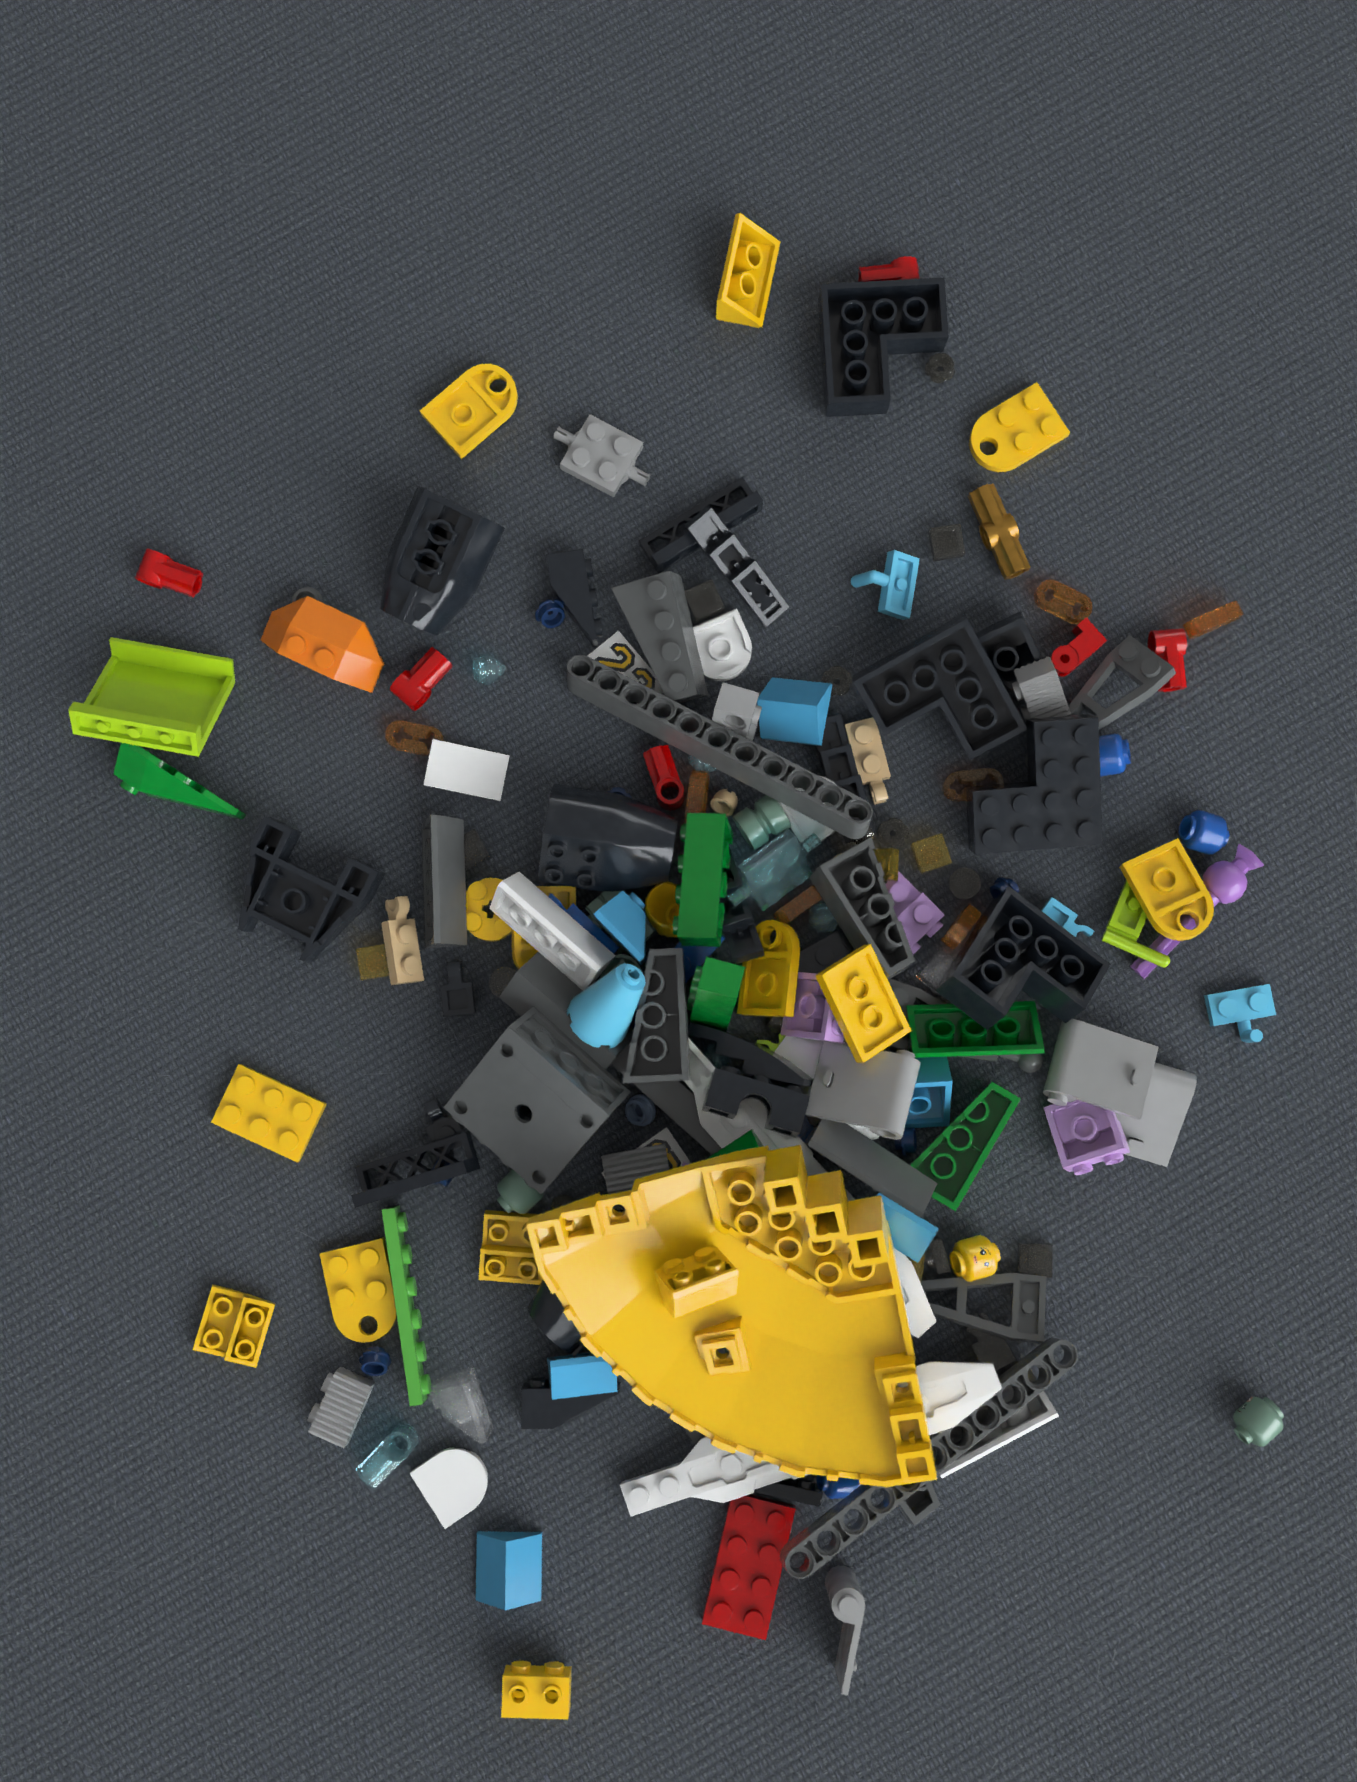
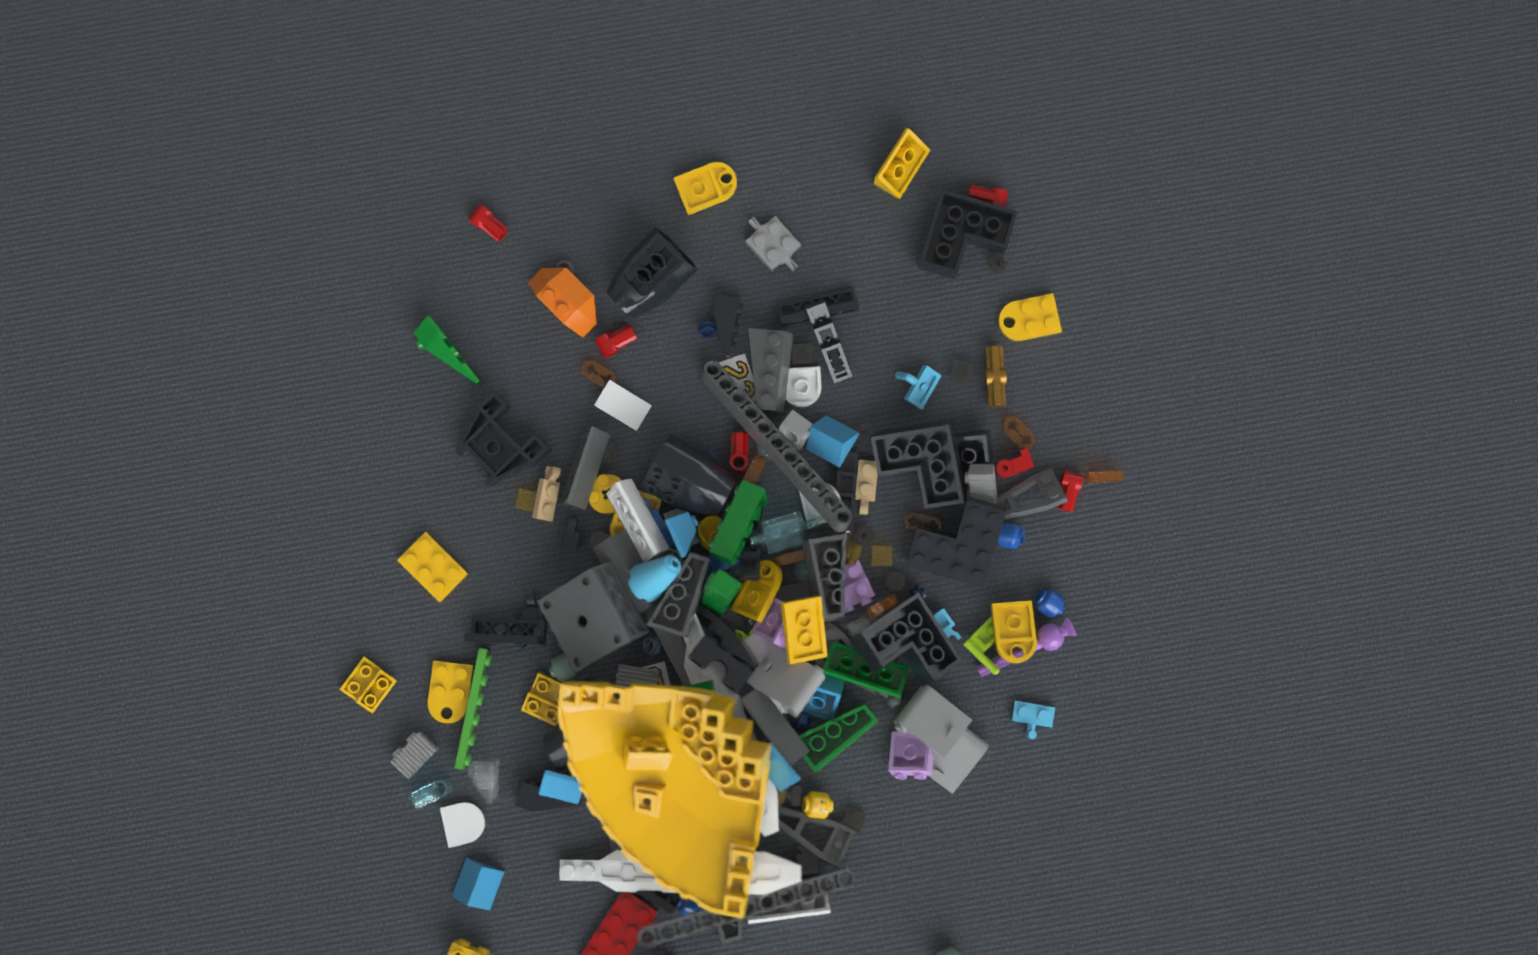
camera: 20 degrees right, 0 degrees up
(155, 697) = (454, 297): lime panel -> none
(374, 1361) = (443, 735): dark blue plate -> none
(487, 669) = (657, 349): clear light blue plate -> none
(730, 800) = (769, 480): tan hinge -> none
(759, 823) = (786, 500): sand green wheel -> none

